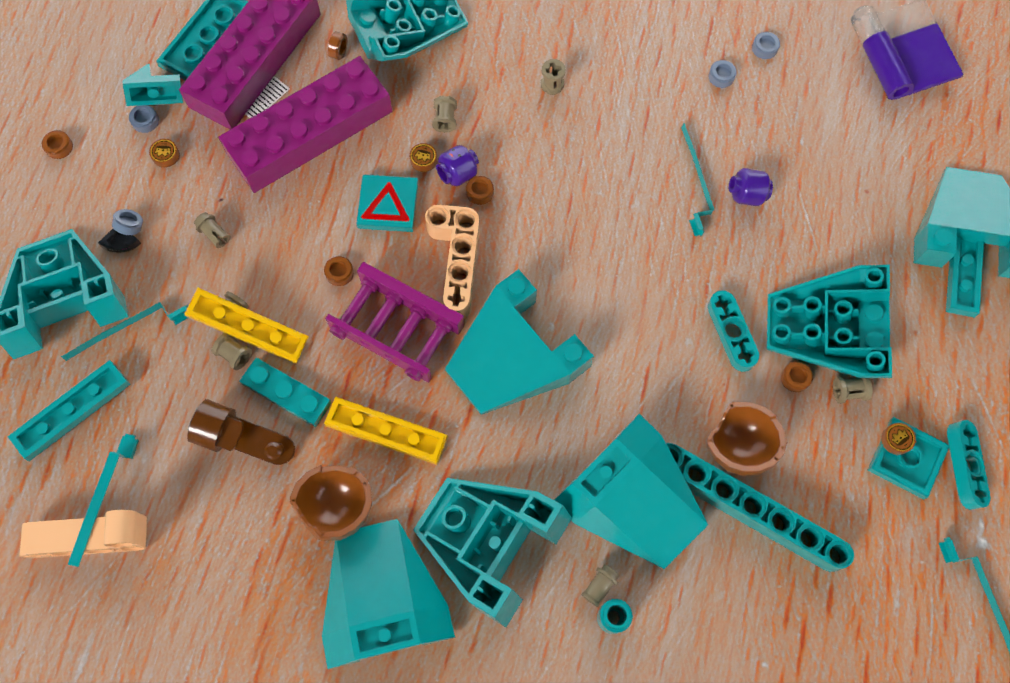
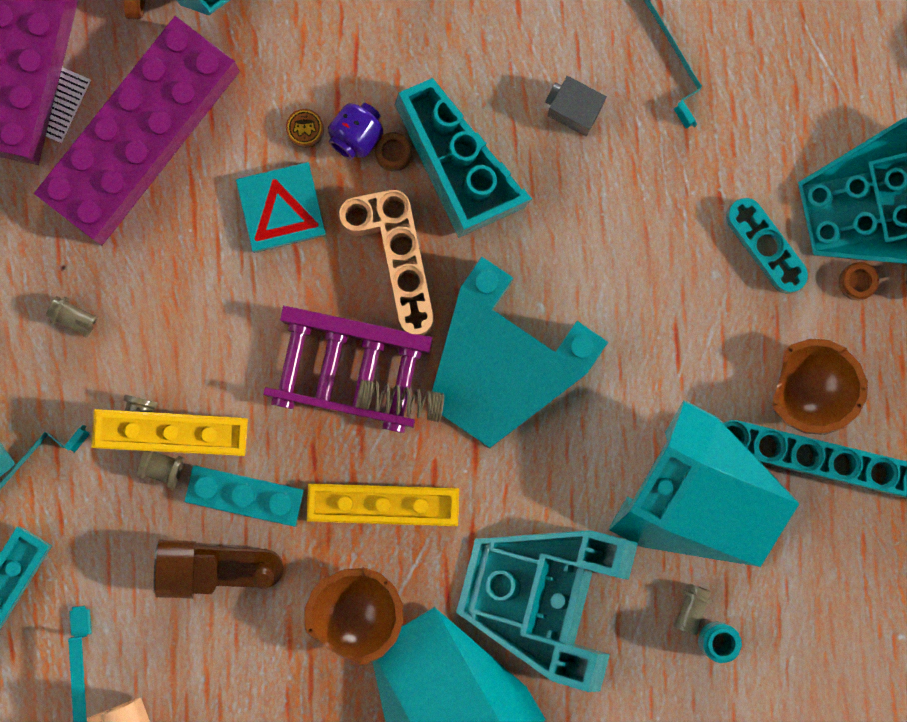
camera: 15 degrees left, 15 degrees up
(338, 271) = (252, 319): dark orange tile -> none
(399, 341) = (435, 400): none -> dark tan piece
(444, 114) = (312, 58): dark tan bush -> none
(525, 214) = (459, 164): none -> teal wedge
(619, 194) = (575, 105): none -> dark grey brick
(750, 187) = (741, 42): dark purple head -> none

